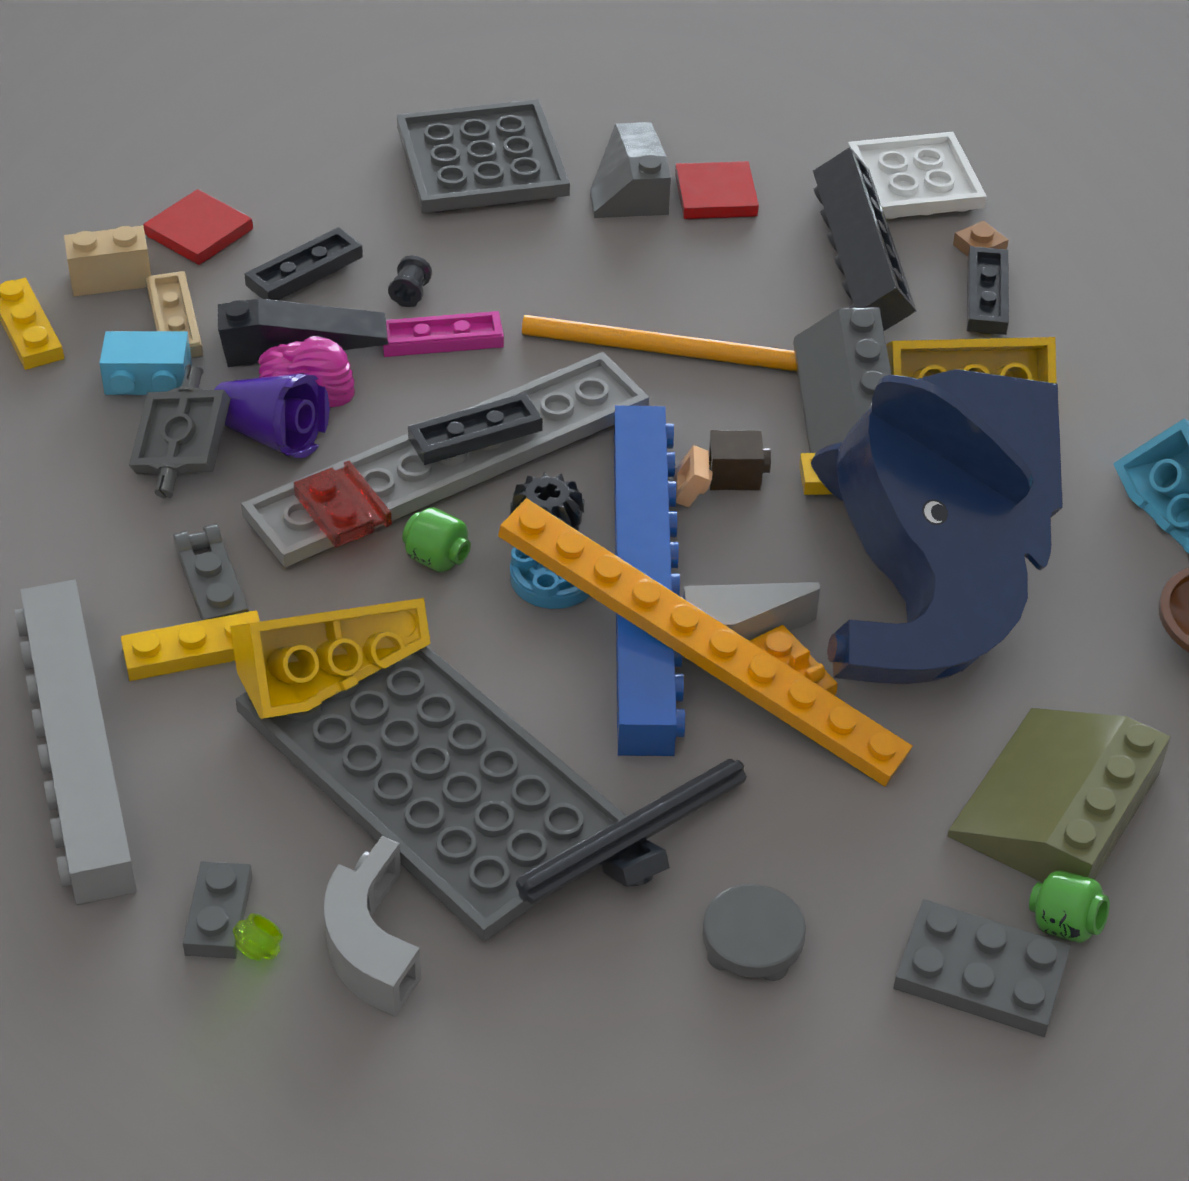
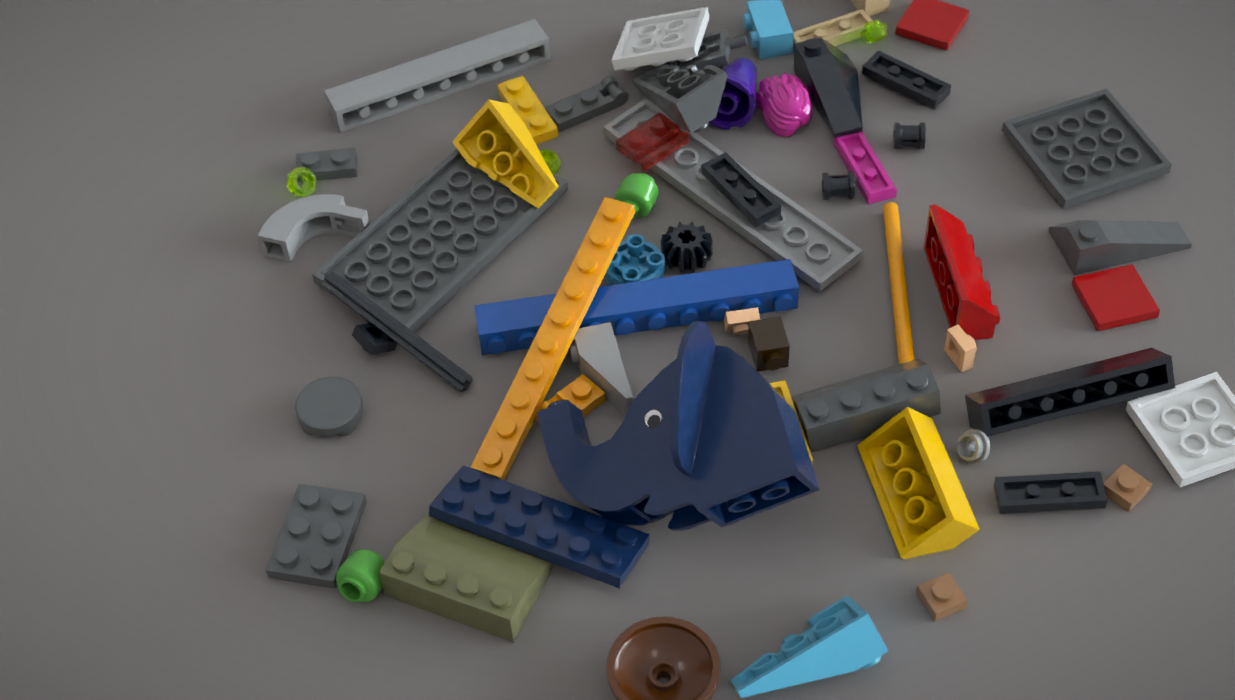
camera: 85 degrees right, 5 degrees up
(135, 460) = (661, 39): none -> white plate
(201, 272) = (874, 31): none -> clear neon green plate
(285, 440) = (685, 95): none -> dark grey wedge
(482, 354) = (838, 185): none -> black bush
(673, 285) = (959, 275): none -> red slope
(776, 308) = (960, 348): none -> light nougat plate
(929, 323) = (966, 446): none -> light grey plate
(993, 719) = (540, 526): none -> dark blue plate
(1113, 397) = (941, 596): none -> medium nougat plate

